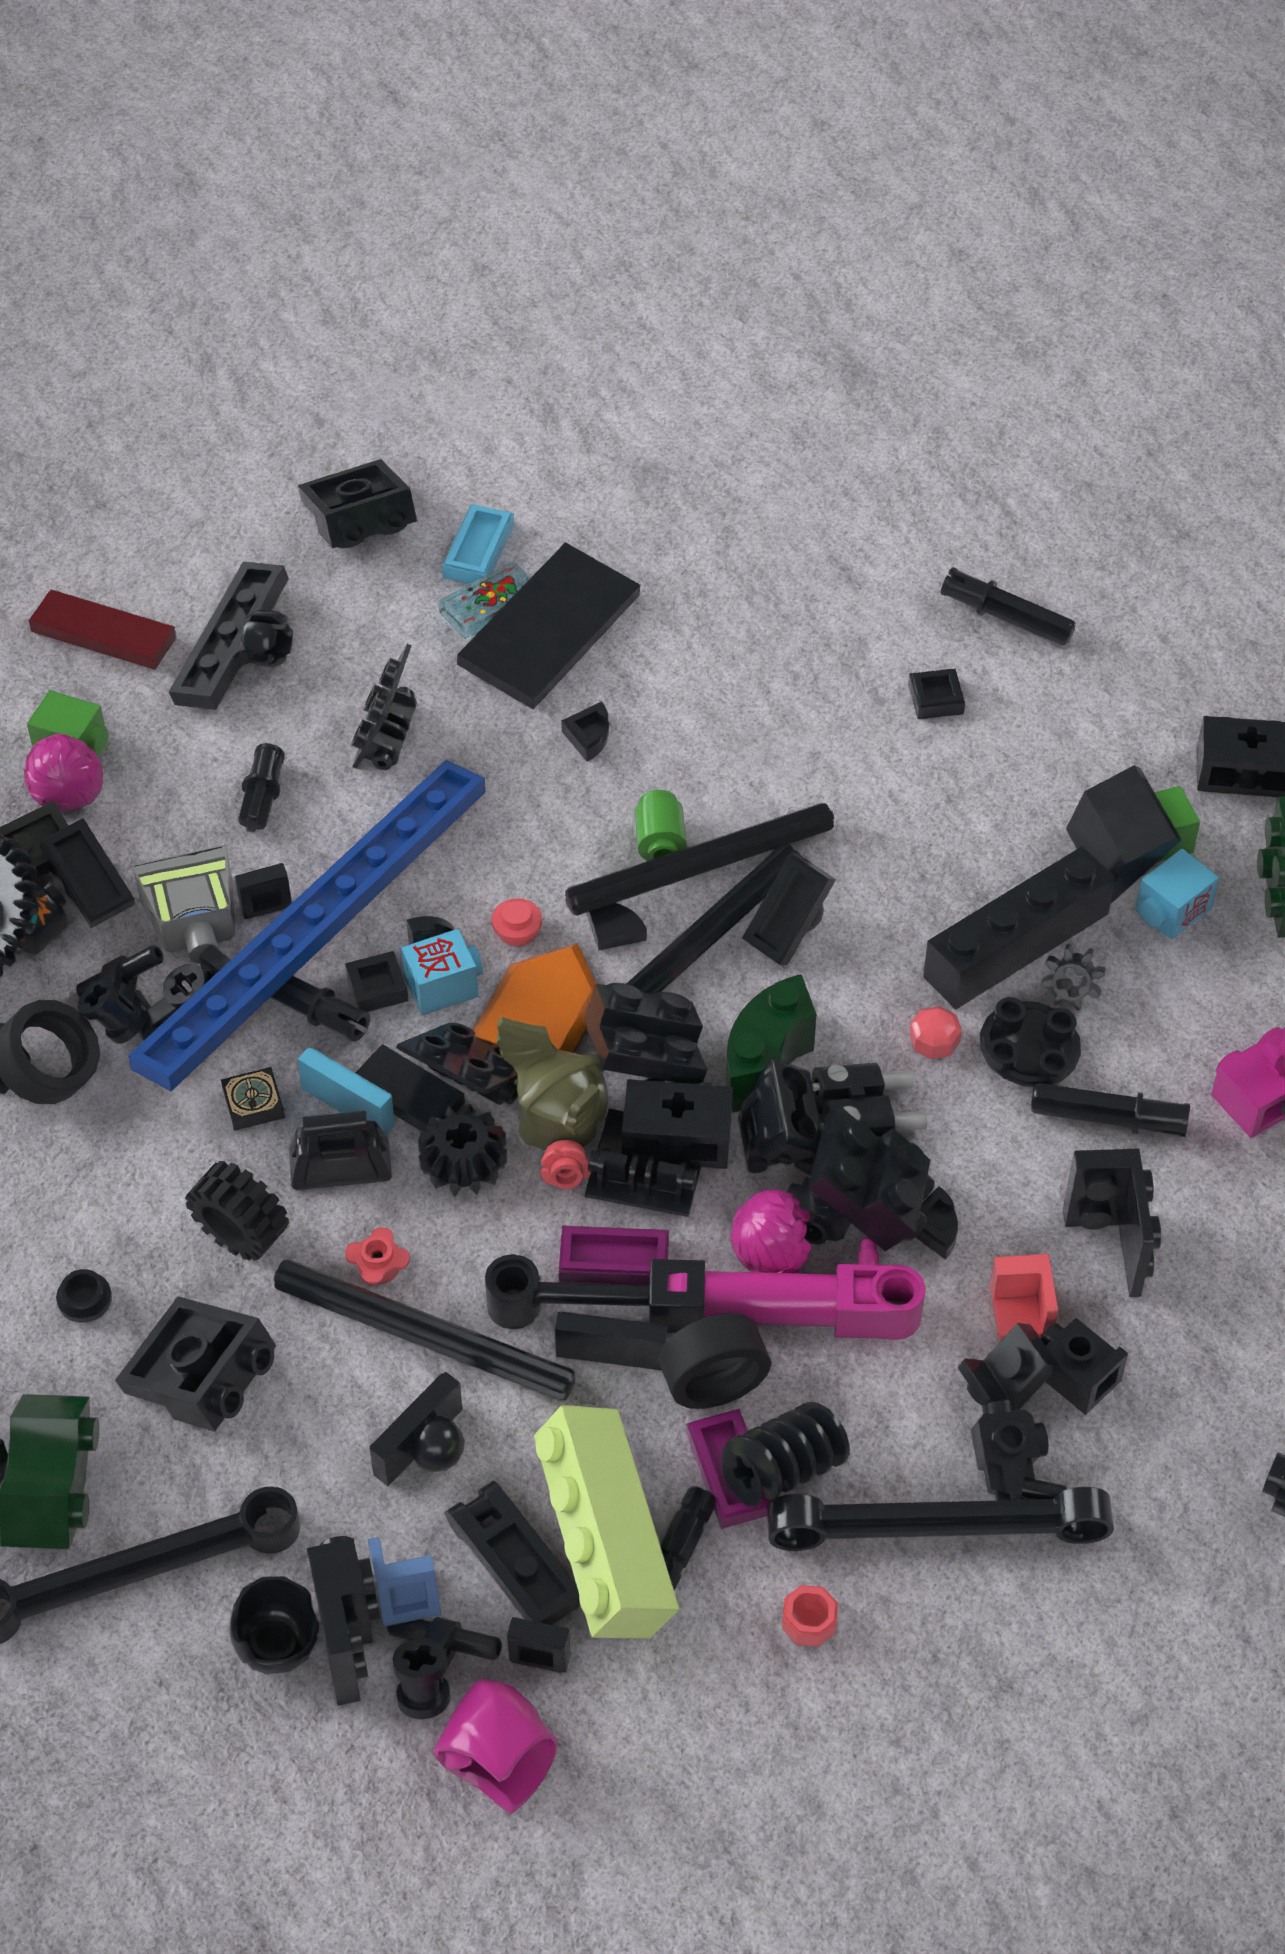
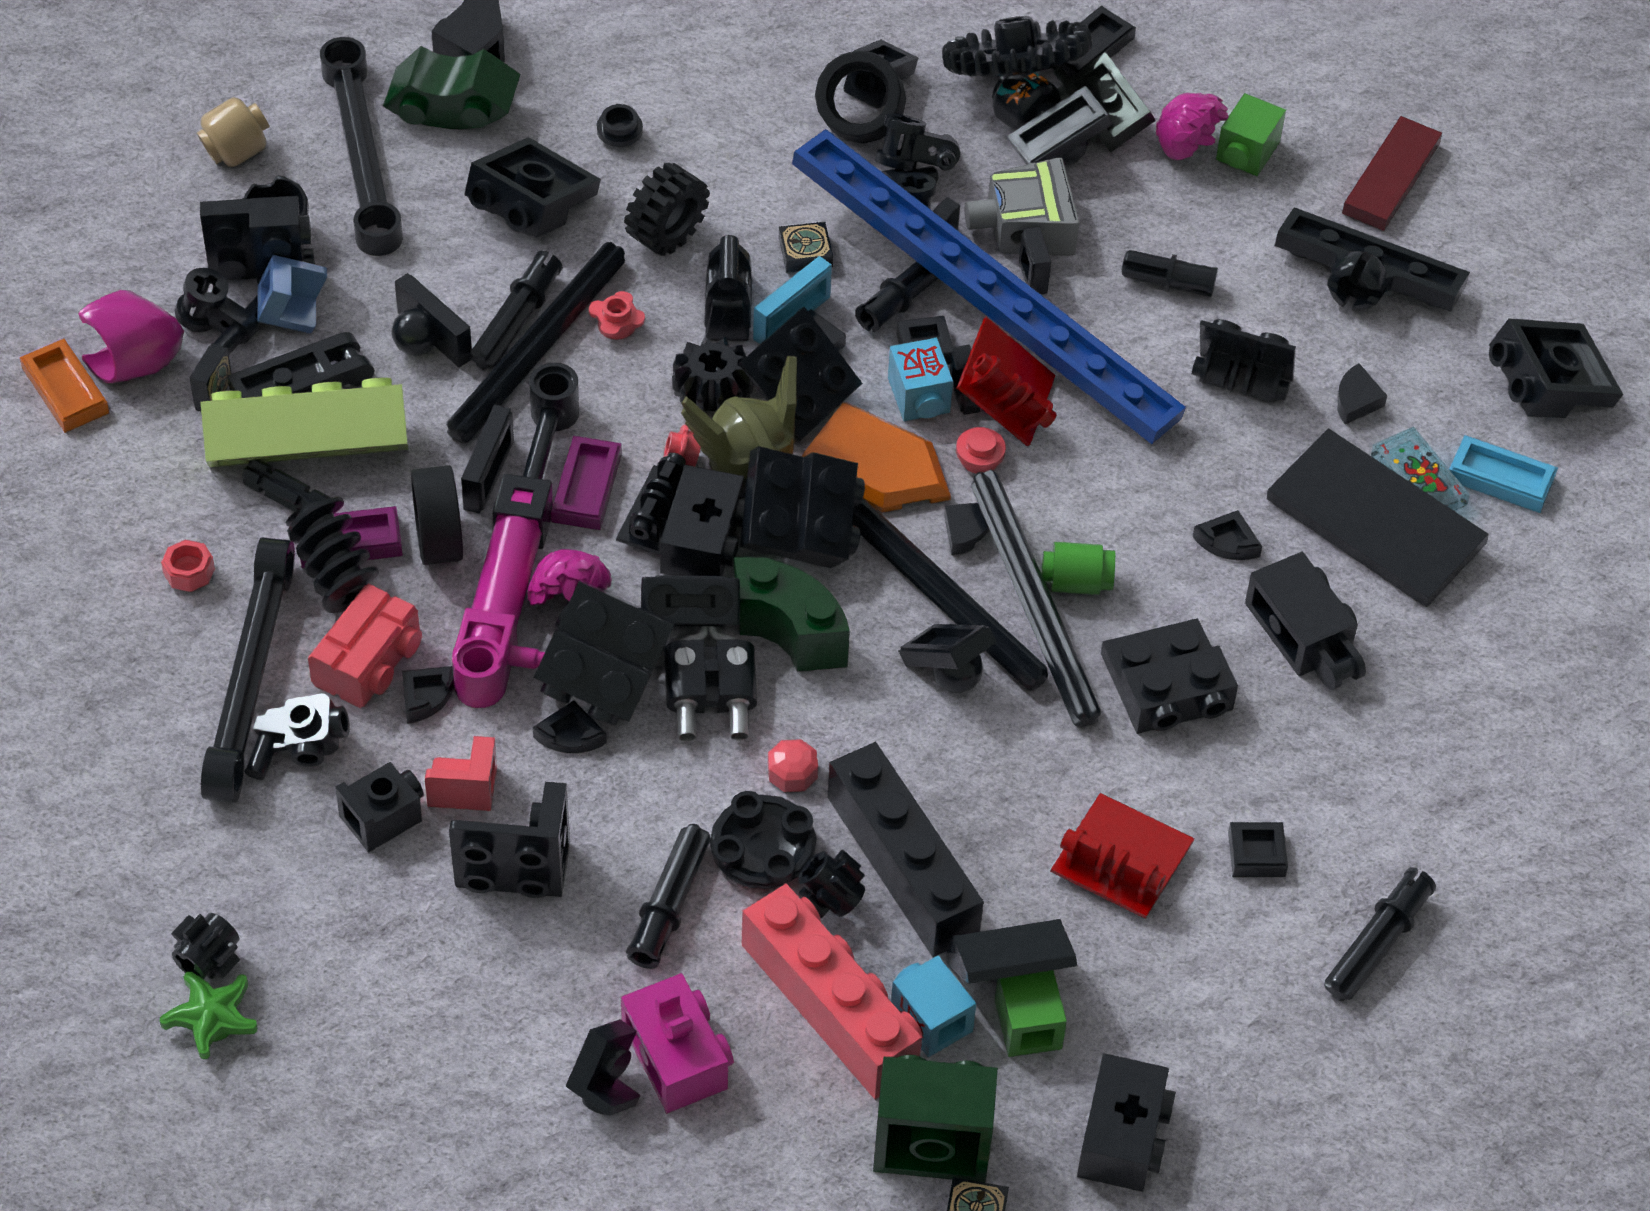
camera: 95 degrees right, 0 degrees up
(132, 1705) = (233, 132): none -> tan head
(378, 1351) = (525, 296): none -> black axle
(393, 641) = (1358, 395): none -> black tile
(458, 896) = (1008, 383): none -> red hinge
(557, 1822) = (64, 385): none -> orange tile
(687, 663) = (1306, 619): none -> black brick
(766, 759) = (1170, 676): none -> black plate
(890, 1411) = (365, 646): none -> coral brick
(919, 1358) = (426, 691): none -> black tile
(972, 780) = (1121, 855): none -> red hinge
(1011, 1369) = (379, 735): black bracket -> none
(1185, 965) = (828, 985): none -> coral brick

